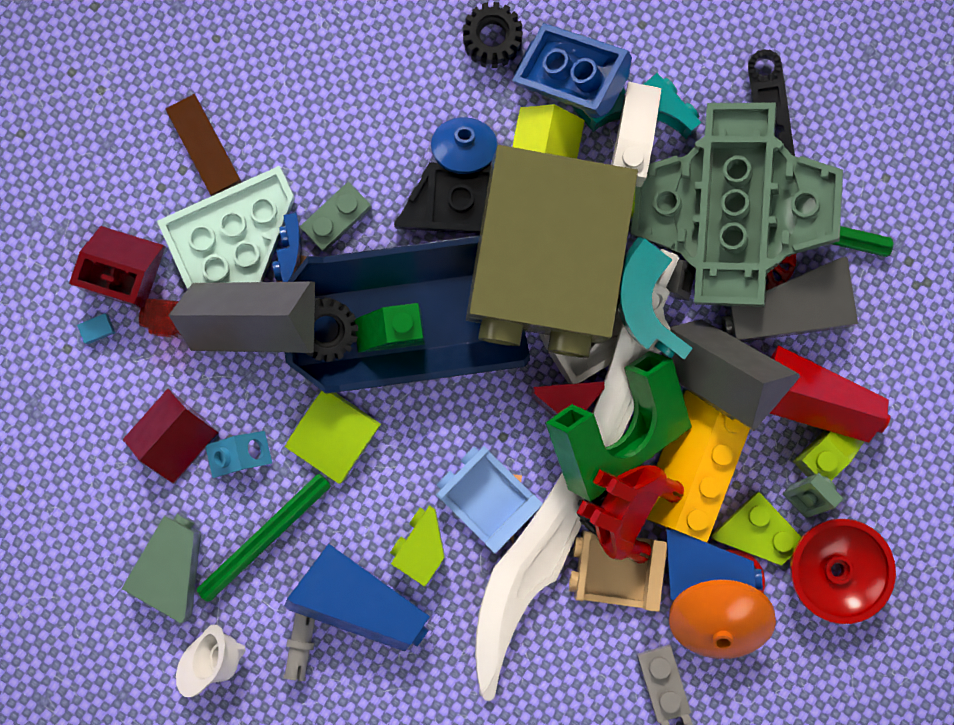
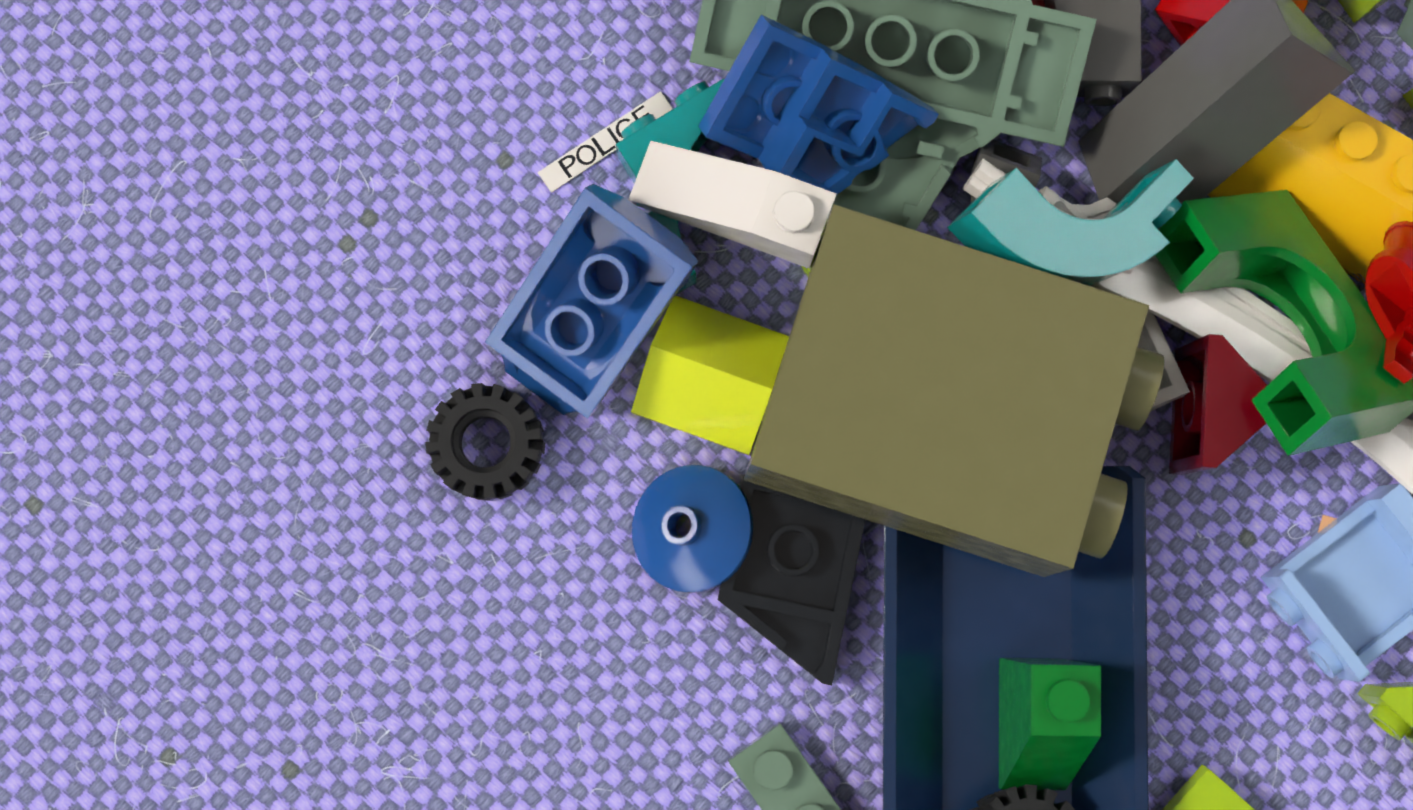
camera: 80 degrees left, 0 degrees up
(653, 67) = (599, 145): none -> white sticker
(690, 166) = (809, 109): none -> blue slope

